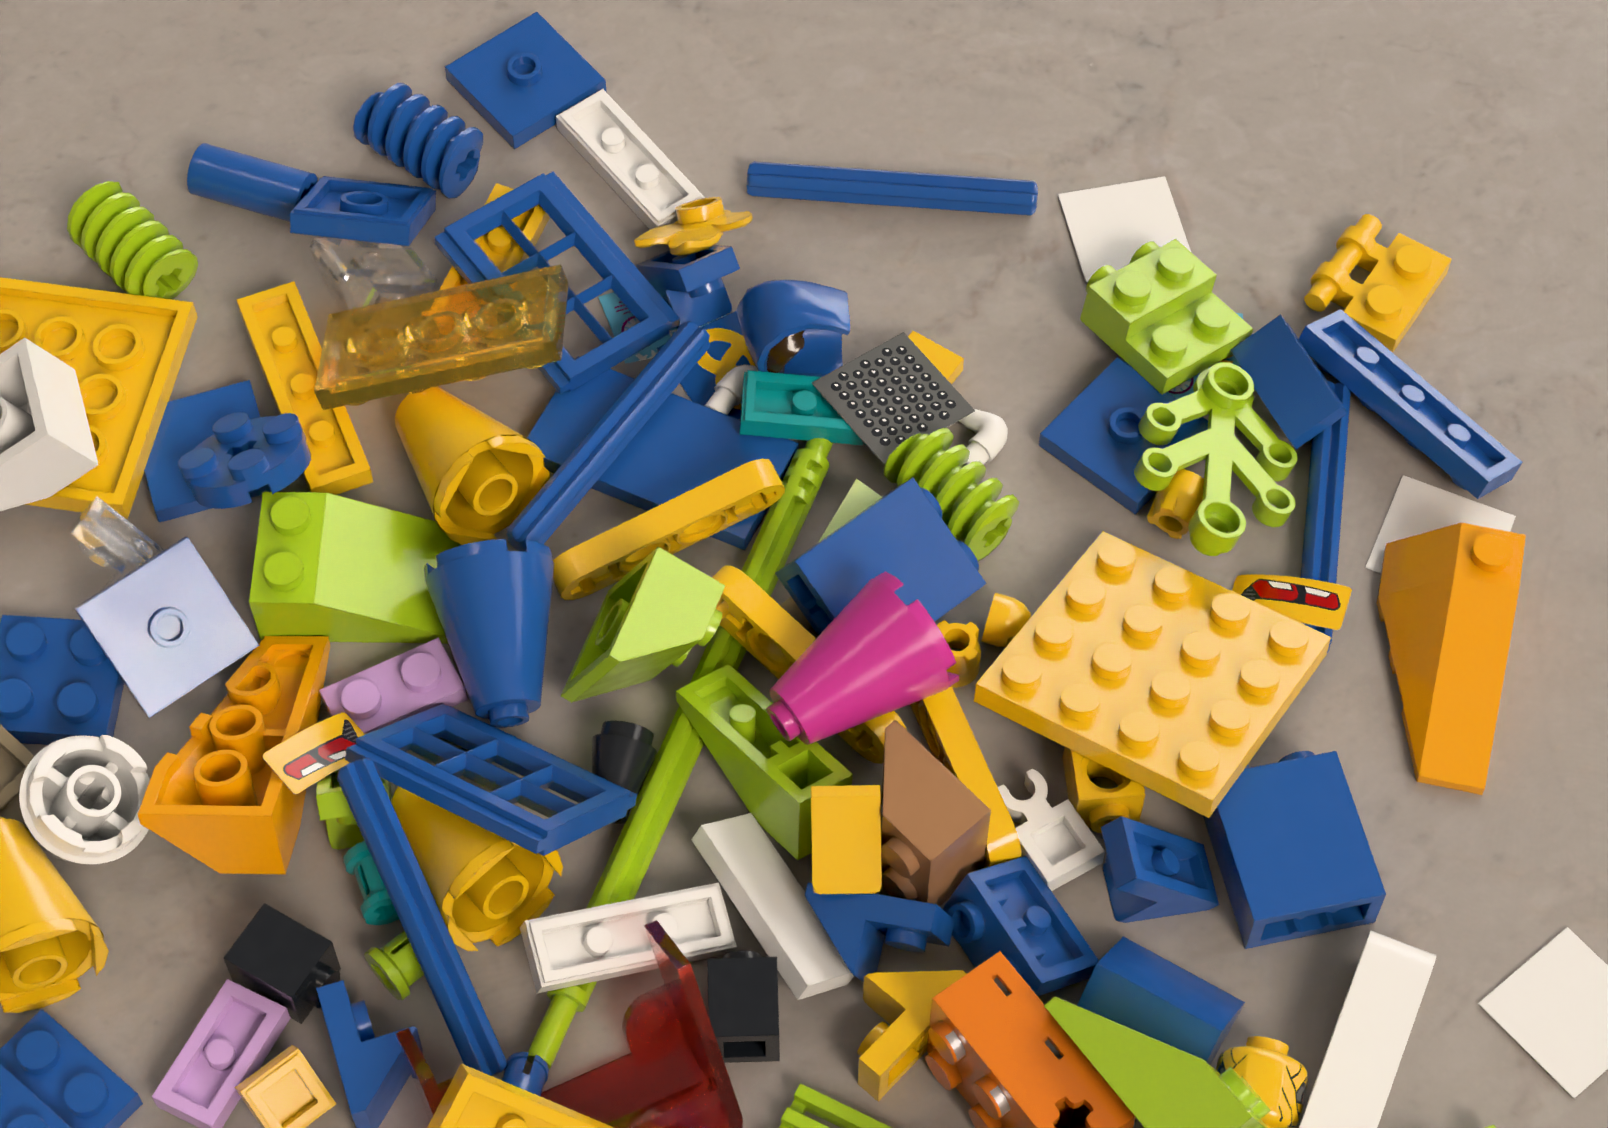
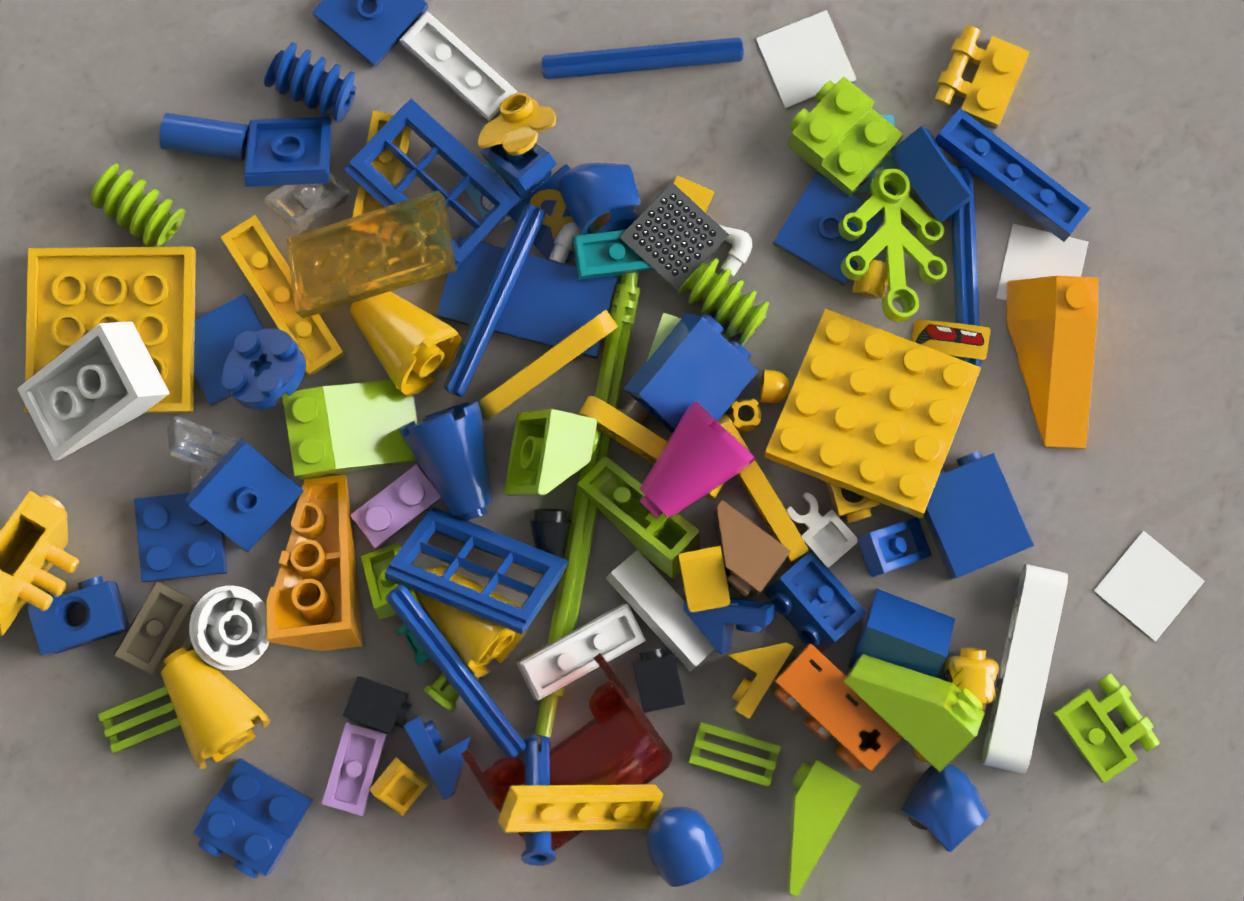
camera: 10 degrees left, 25 degrees up
(313, 752) = (365, 568): yellow sticker -> none

